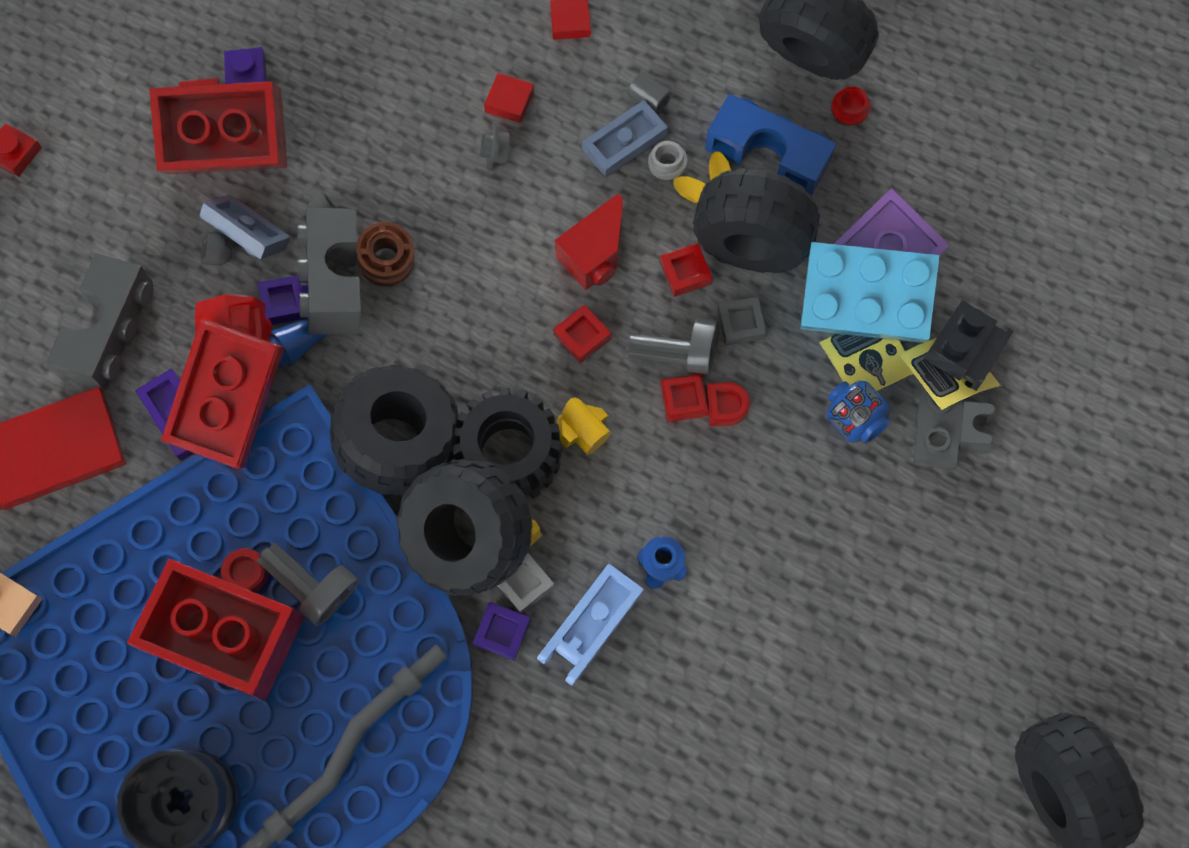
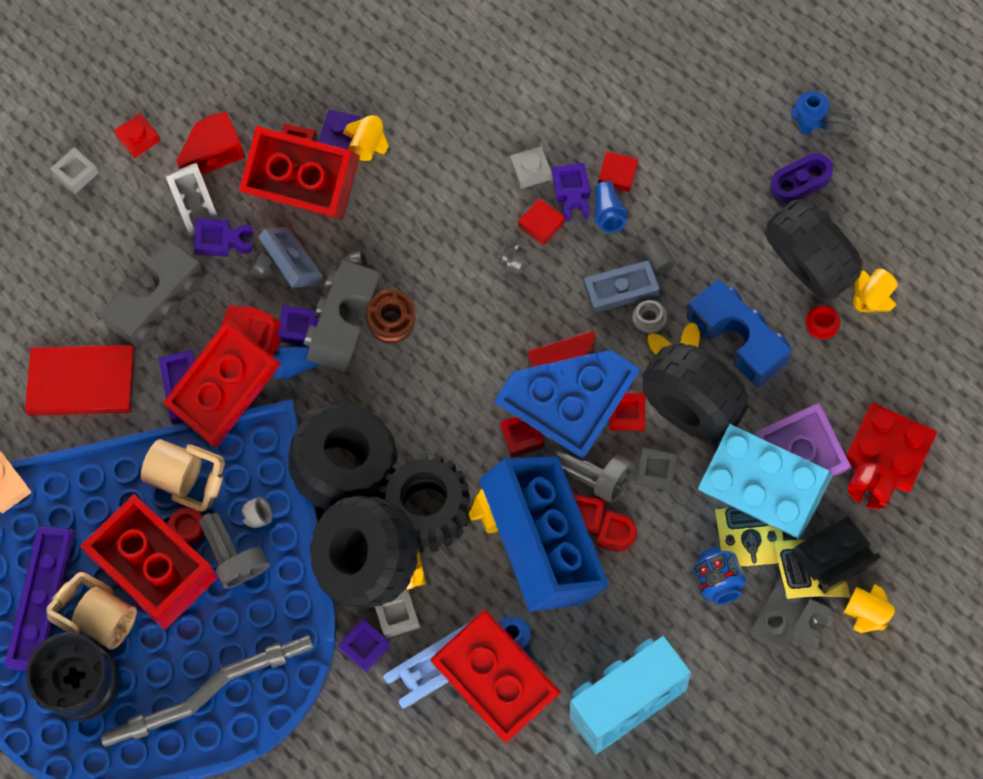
camera: 25 degrees right, 5 degrees down
(99, 716) = (43, 579): none -> dark purple tile
(103, 134) = (211, 144): none -> red slope
(105, 199) = (191, 196): none -> light grey slope
(150, 235) = (215, 238): none -> dark purple plate
(179, 714) = (98, 613): none -> tan piece
(208, 512) = (177, 471): none -> tan piece
(280, 66) = (367, 137): none -> yellow piece
(321, 527) = (257, 513): none -> light grey hinge
(474, 43) = (531, 167): none -> light grey plate
(529, 49) = (573, 187): none -> dark purple plate
(579, 61) = (609, 210): none -> blue cone
(622, 274) = (569, 397): none -> blue plate
(654, 433) = (543, 533): none -> blue brick
(664, 610) = (495, 675): none -> red tile
(819, 575) = (628, 693): none -> medium azure brick
(891, 56) = (874, 291): none -> yellow piece
(977, 222) = (886, 455): none -> red plate
(1026, 390) = (870, 609): none -> yellow piece

